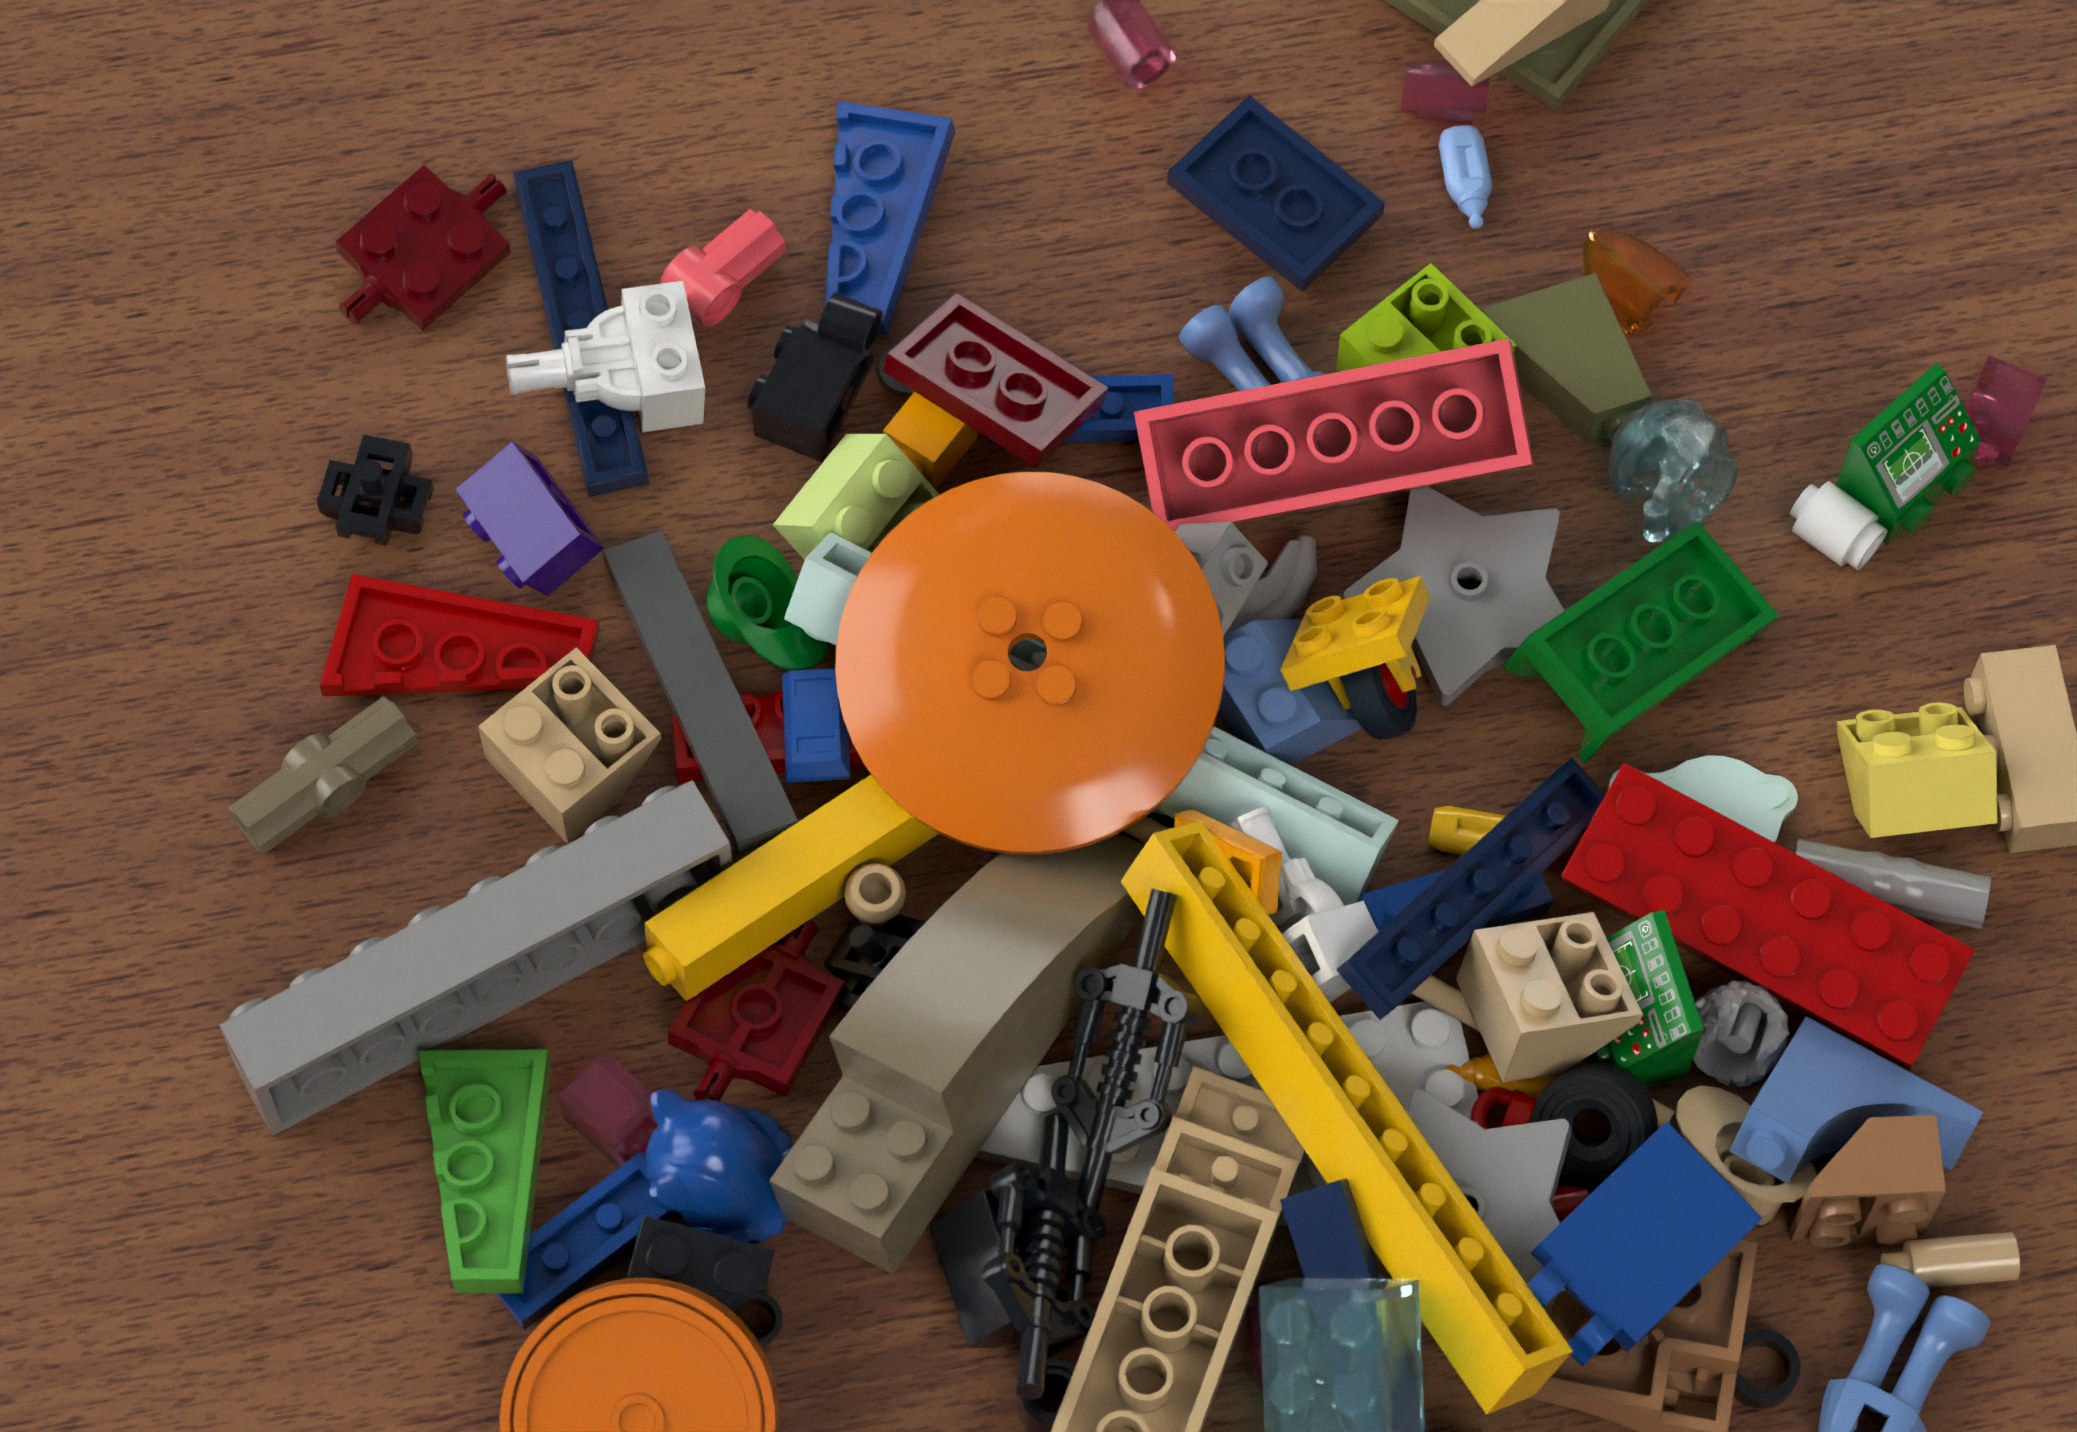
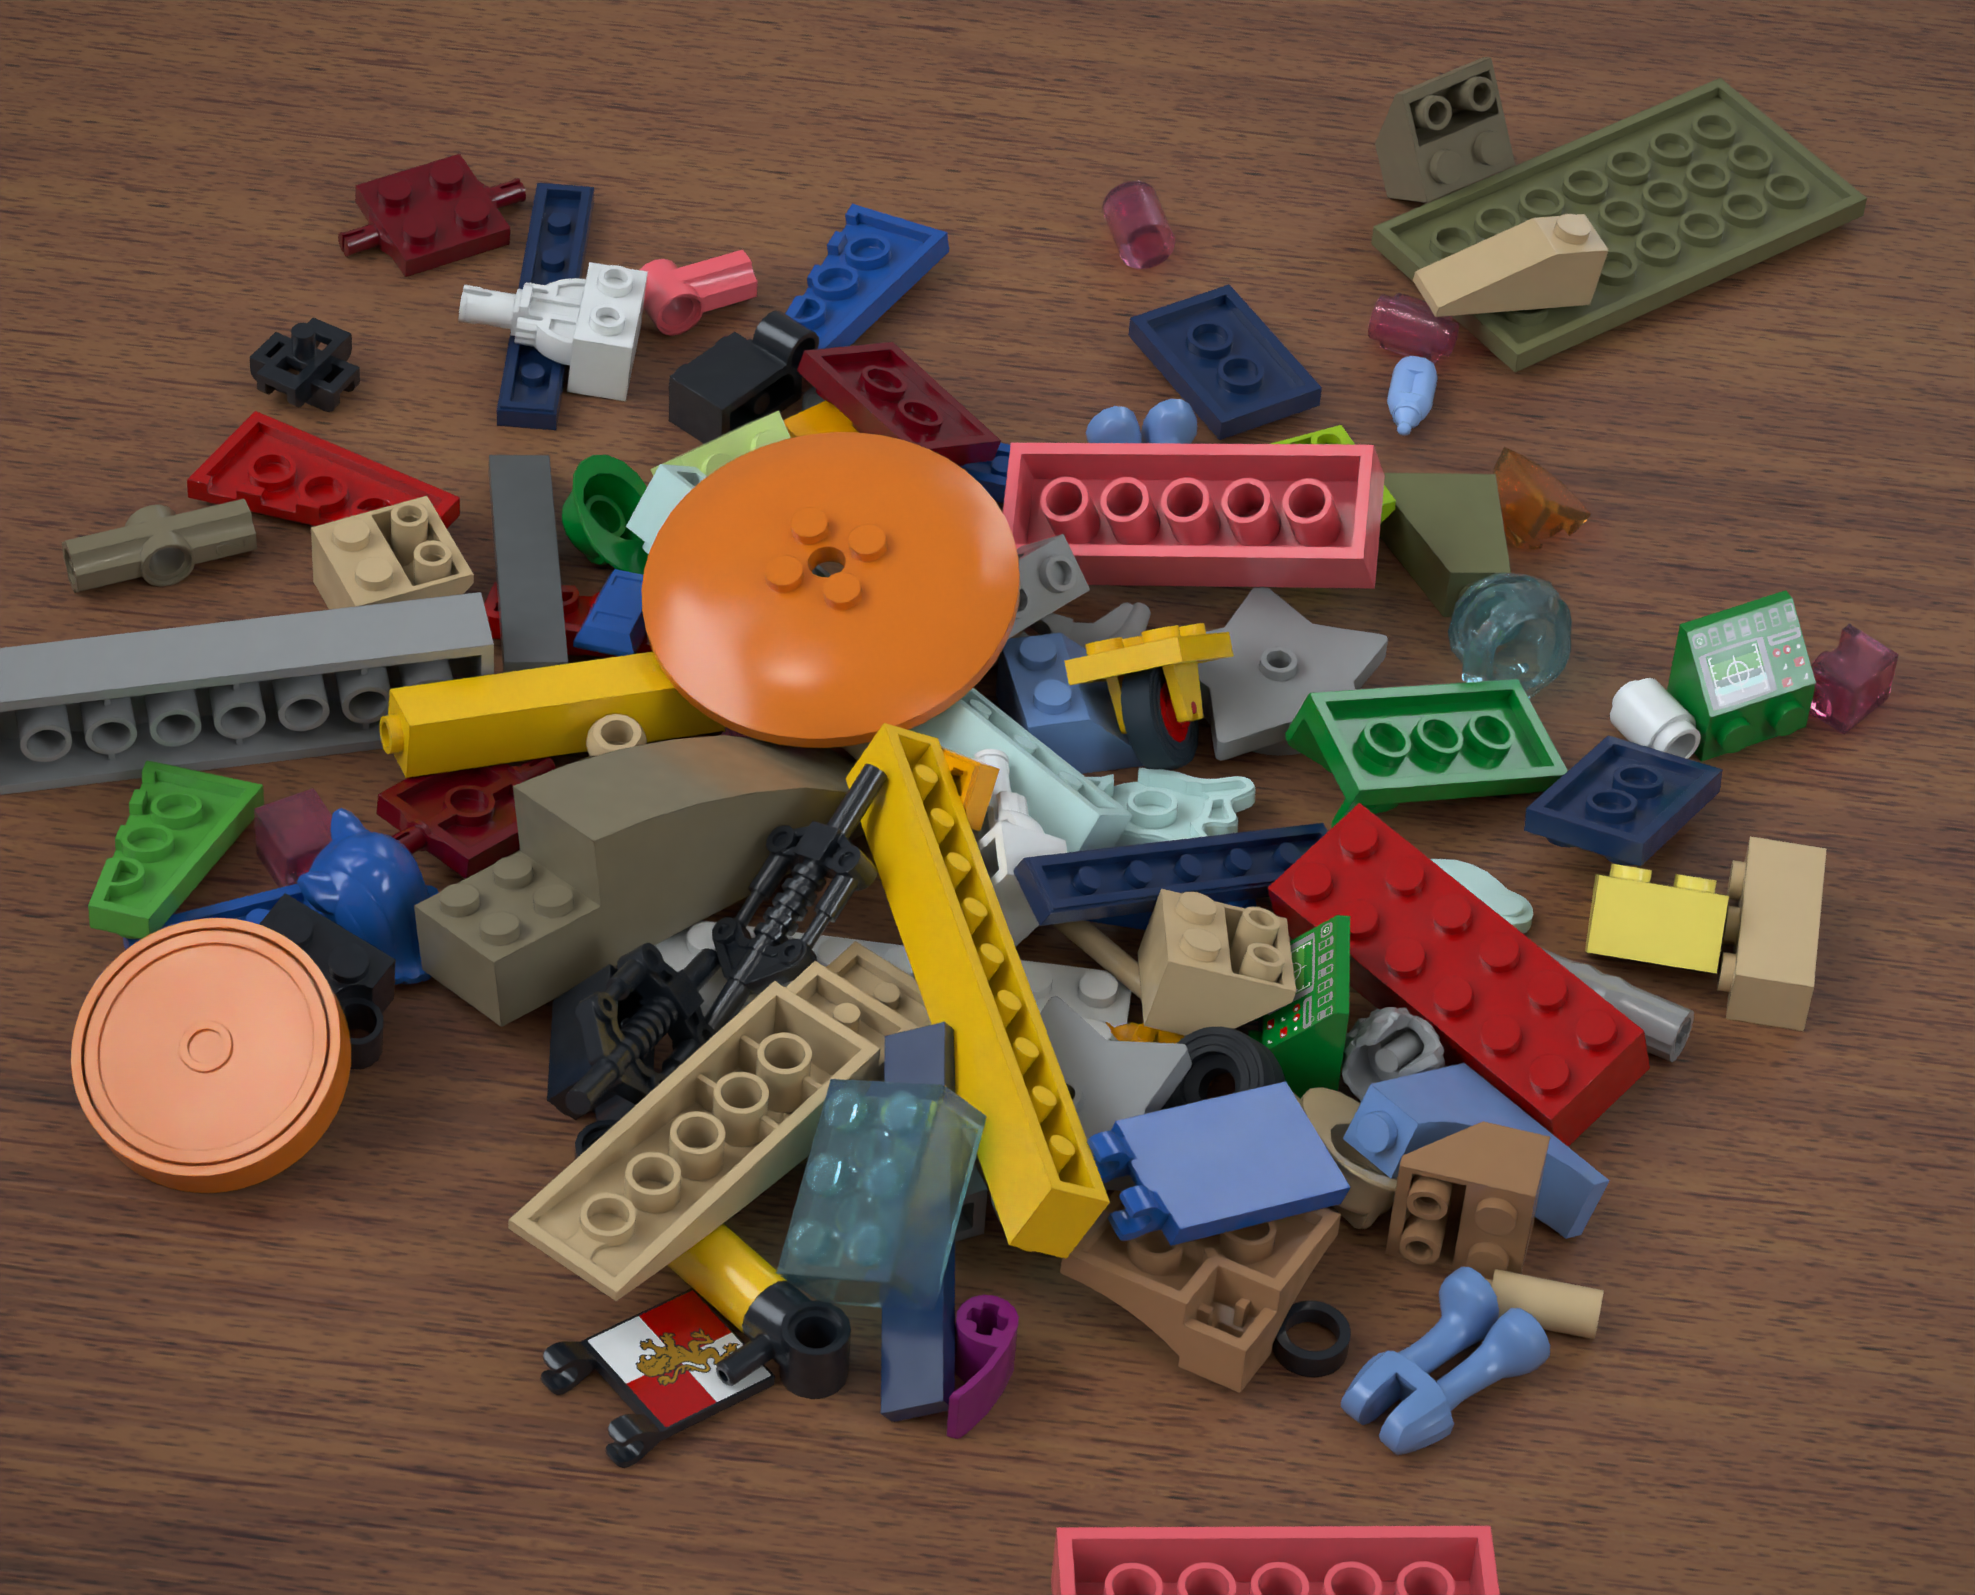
camera: 15 degrees right, 20 degrees down
(528, 520) = (431, 412): brick -> none
(1424, 786) = (1178, 806): none -> light aqua tile
(1846, 641) = (1623, 801): none -> dark blue plate

